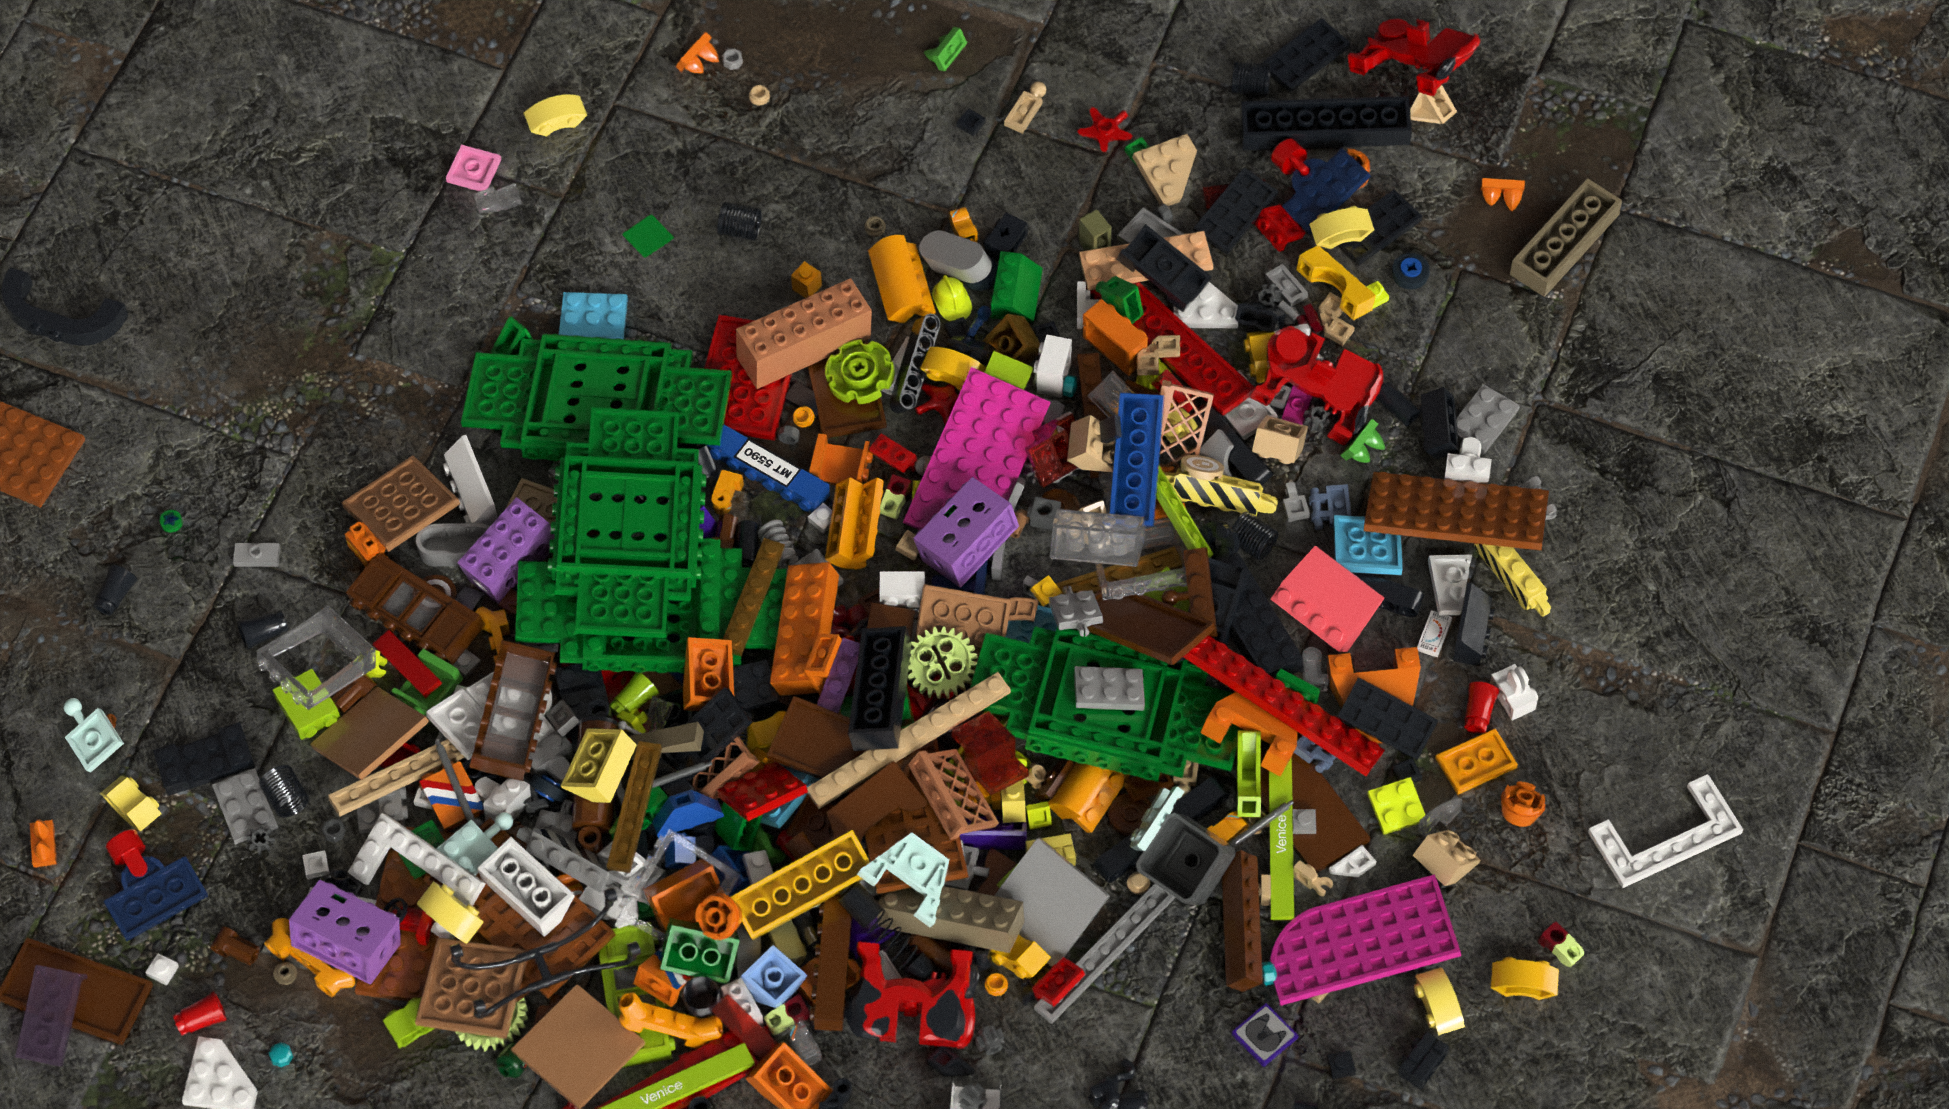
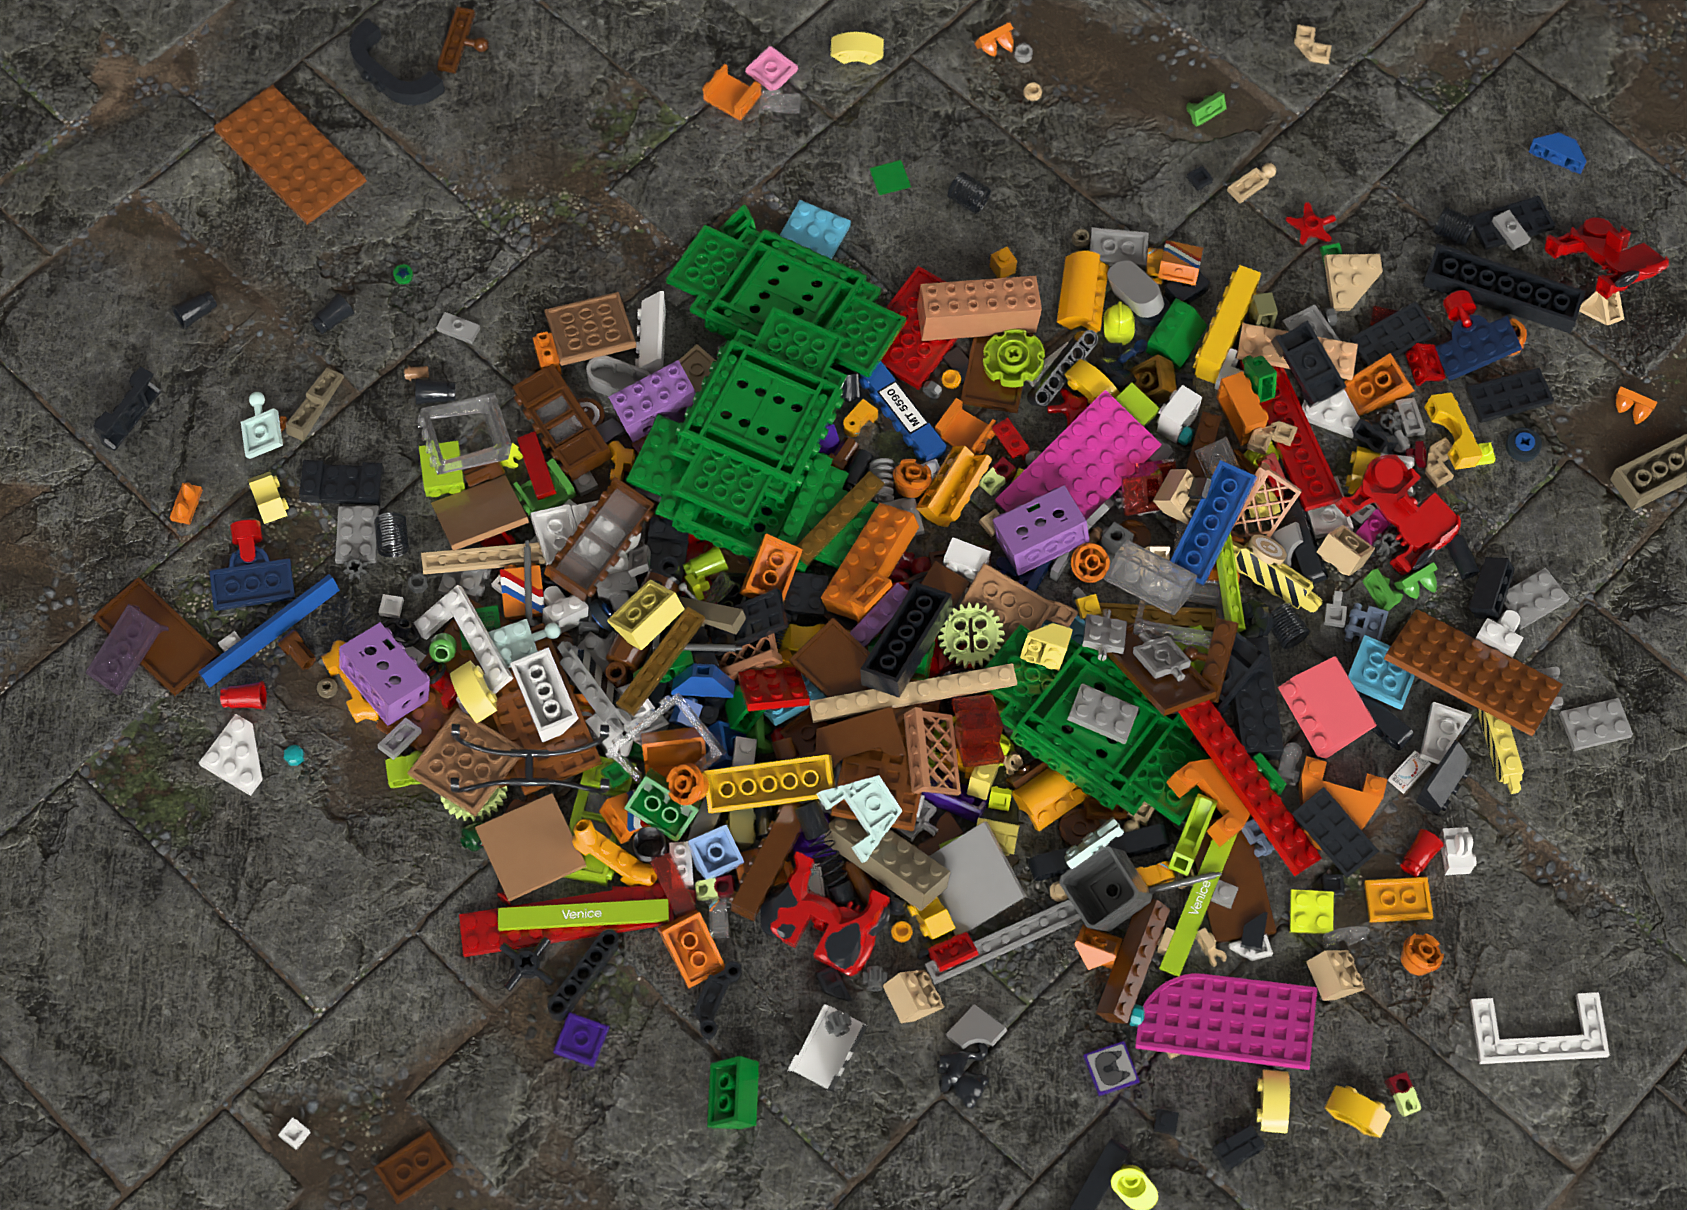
camera: 20 degrees right, 5 degrees up
(118, 256) = (457, 39): none -> reddish brown plate
(136, 689) = (314, 404): none -> dark tan slope
(196, 939) = (269, 631): none -> blue tile
(232, 616) = (416, 372): none -> medium nougat pin
(389, 992) = (399, 738): none -> light grey plate
(394, 883) = (442, 647): none -> bright green head
(441, 209) = (731, 94): none -> orange panel
(635, 934) = (616, 774): none -> green plate
(808, 531) = (911, 478): none -> orange cone
(918, 219) = (1120, 246): none -> light grey plate
(990, 213) = (1180, 262): none -> orange panel
(1025, 642) = (1047, 646): none -> light yellow slope
(1028, 547) = (1090, 562): none -> orange cone
(1035, 1041) = (913, 995): none -> tan slope
(1062, 258) = (1226, 323): none -> yellow brick
(1112, 1048) = (974, 1028): none -> light grey tile
(1143, 610) = (1161, 656): none -> light grey plate
(1201, 922) = (1097, 947): none -> orange slope
(1241, 265) = (1378, 385): none -> orange slope
(1308, 62) = (1511, 230): none -> light grey plate
(1330, 467) = (1380, 591): none -> bright green tile
(1341, 227) = (1478, 384): light yellow brick -> none
(1349, 847) = (1254, 933): none -> black tile
(1596, 518) = (1596, 724): none -> light grey plate

